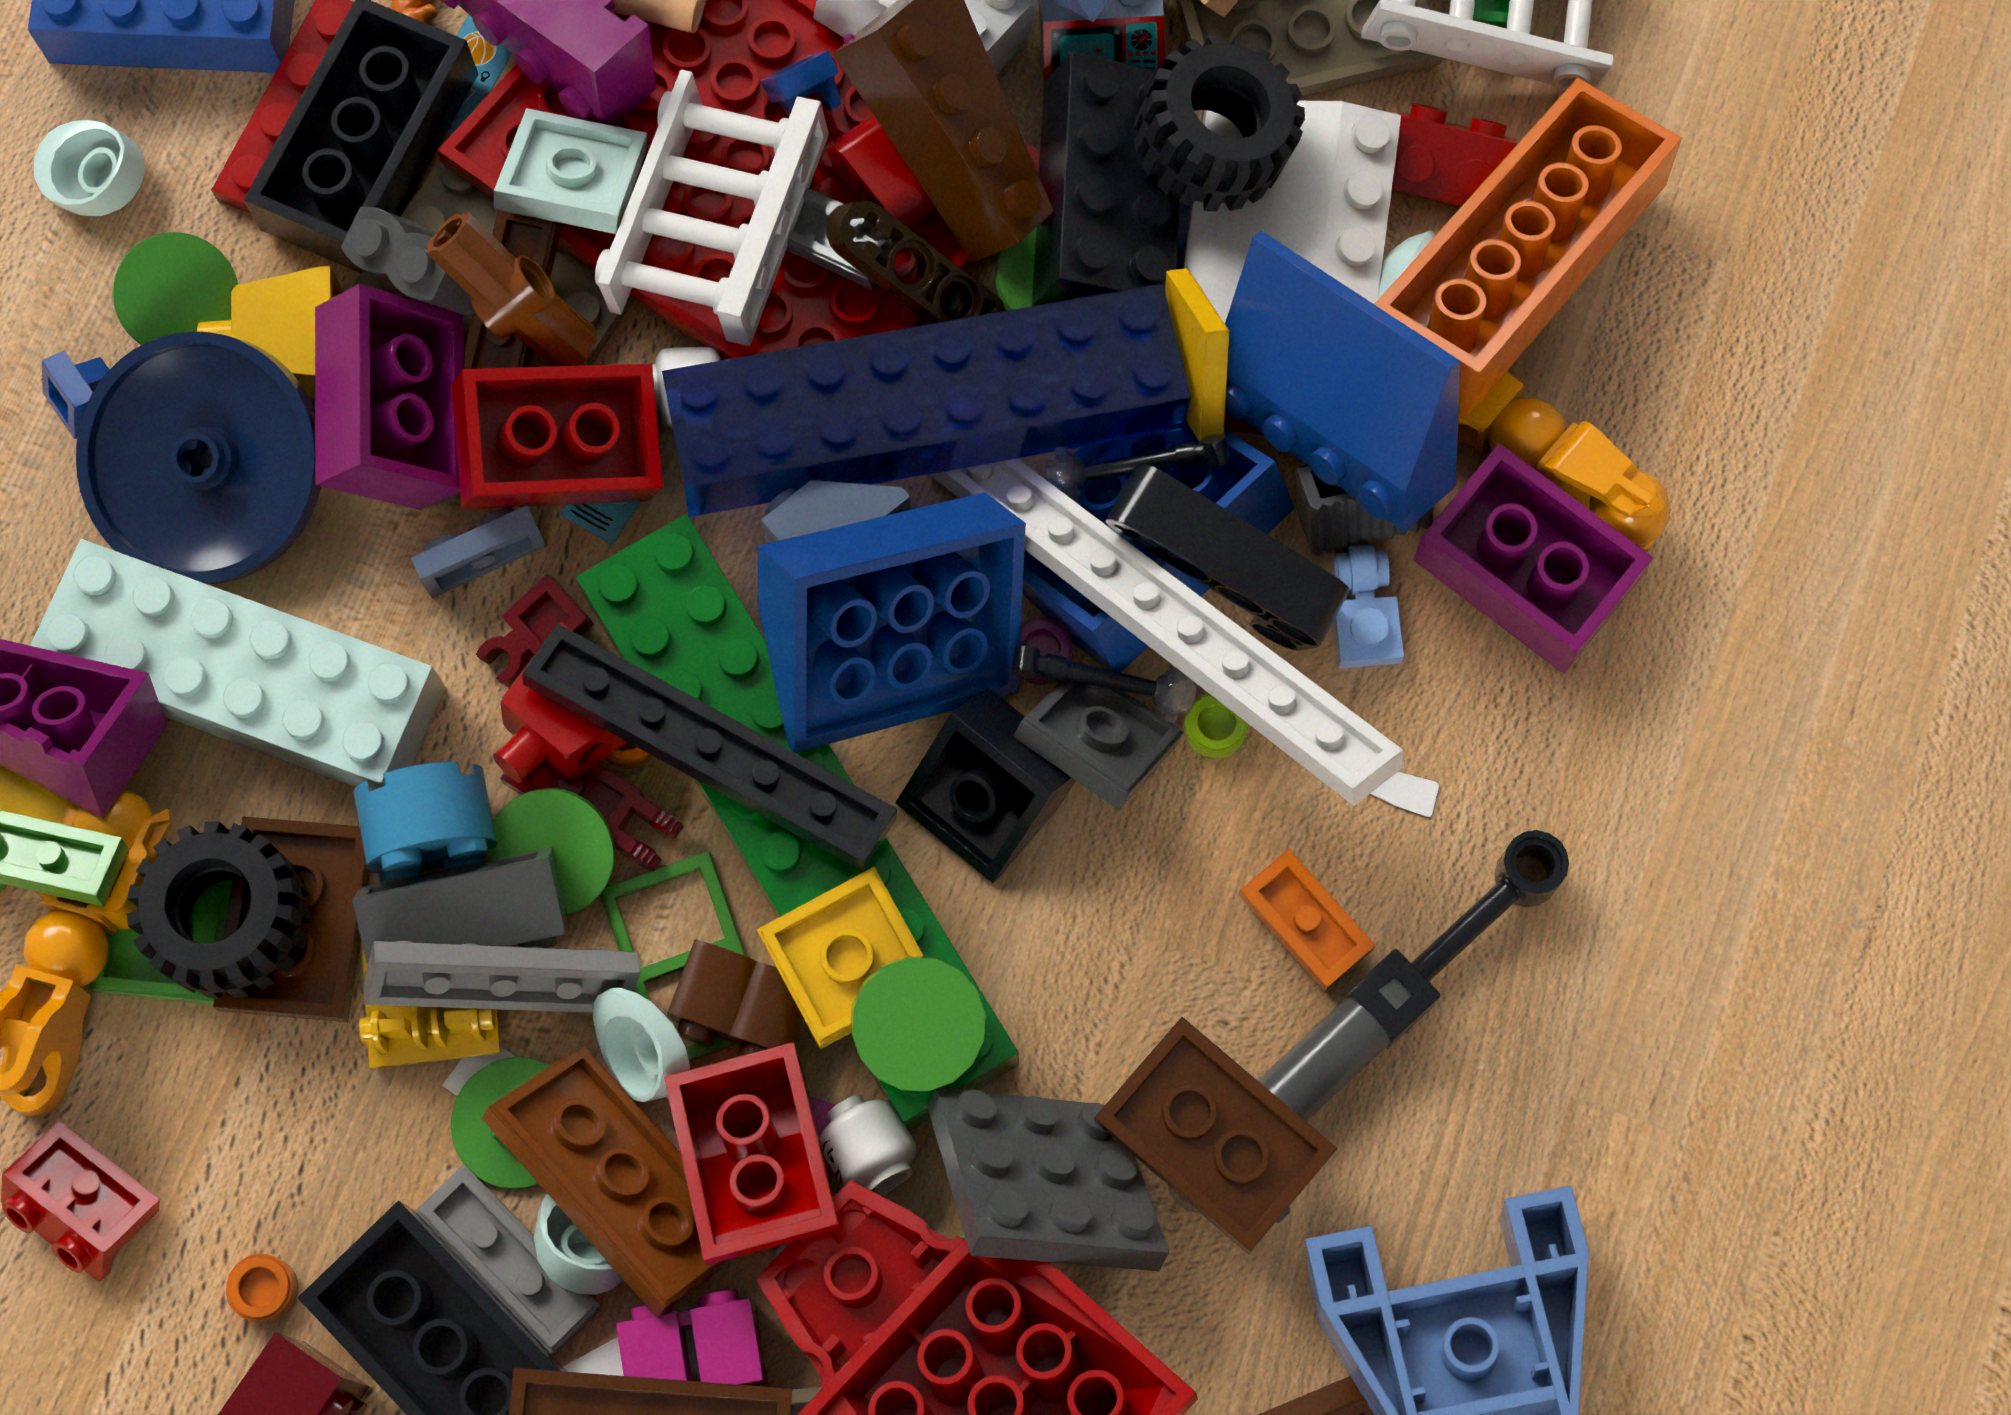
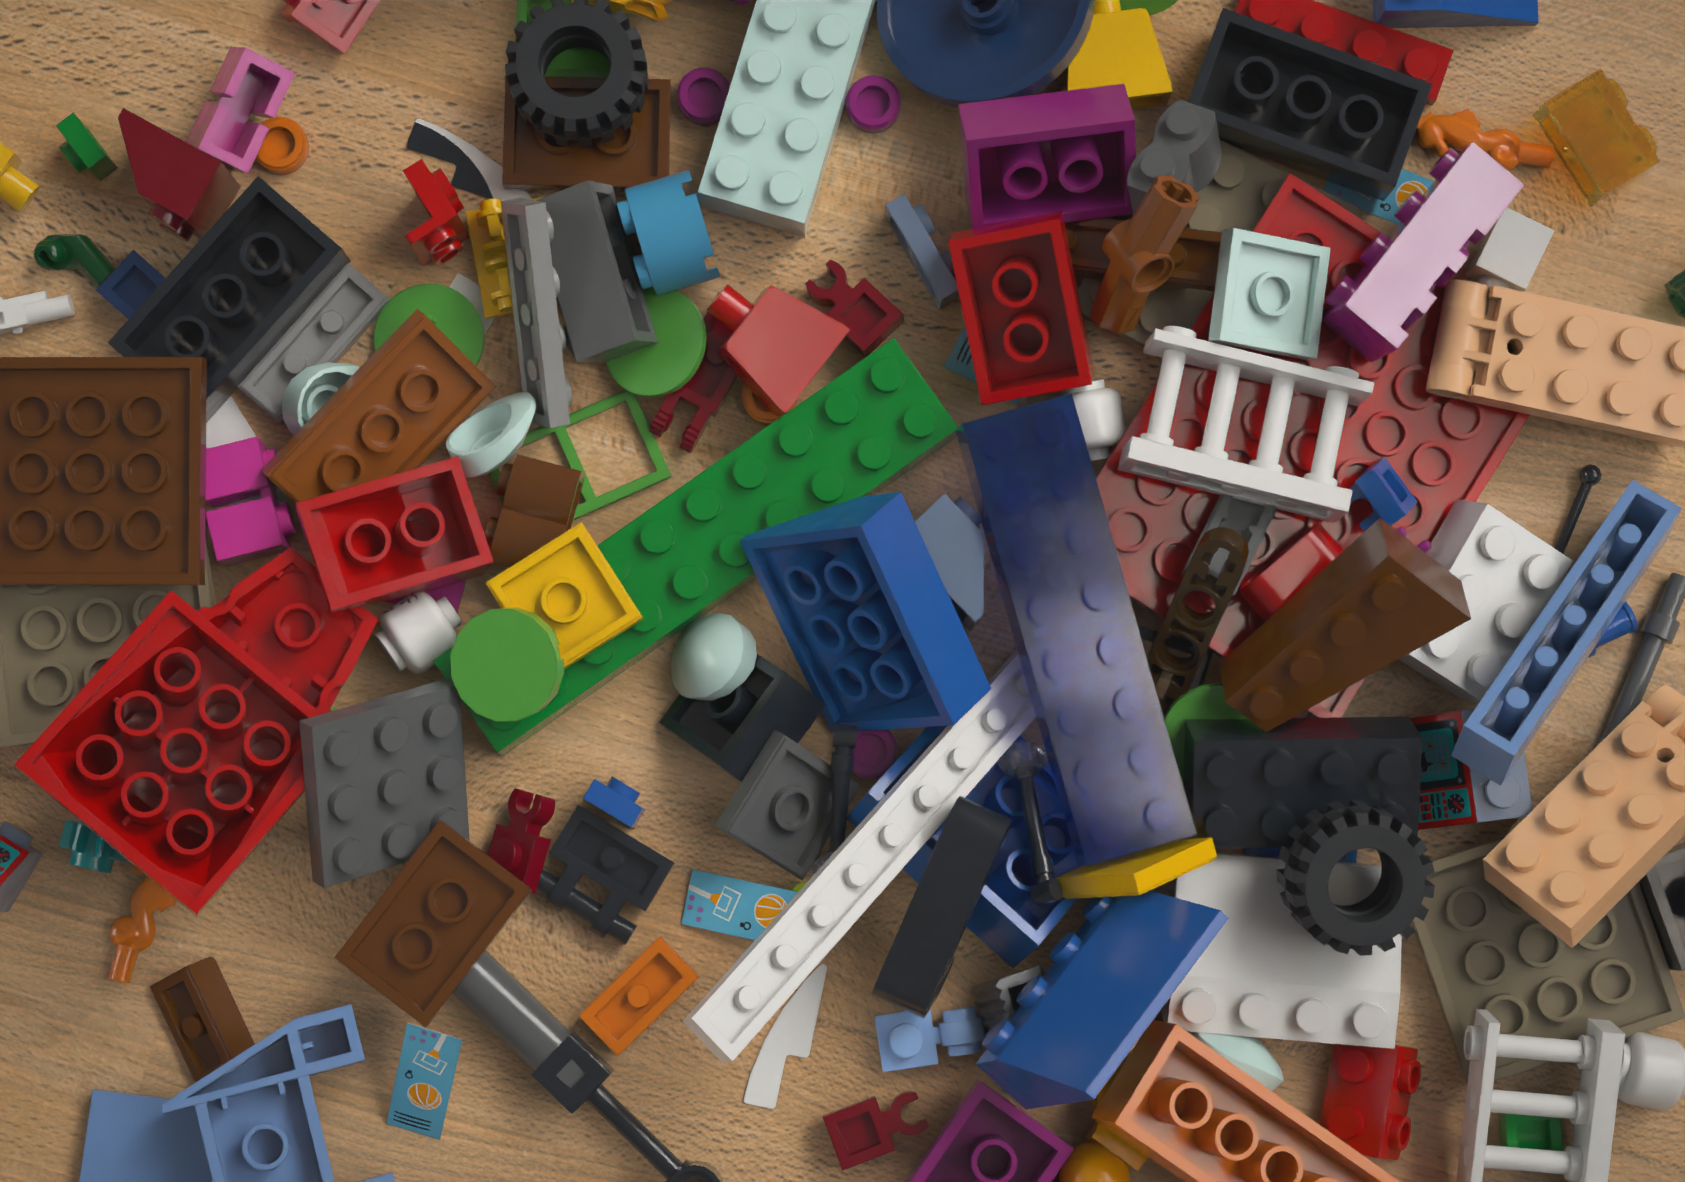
camera: 80 degrees right, 10 degrees up
(182, 1317) = (244, 86): none -> dark pink piece
(267, 786) = (702, 96): none -> magenta tile
(303, 594) = (873, 104): none -> magenta tile
(319, 1059) = (474, 169): none -> sticker
(359, 1087) = (441, 235): none -> red bracket
(710, 746) = (738, 467): black plate -> none
(931, 810) = (712, 657): none -> light aqua hat
(1081, 930) = (616, 800): none -> blue plate
(1121, 1042) = (520, 845): none -> dark red plate
(1147, 943) = (610, 859): none -> black plate
(1214, 790) = (732, 904): none -> medium azure sticker
(1396, 1166) = (424, 1081): none -> medium azure sticker
(1466, 680) = (864, 1131): none -> dark red plate

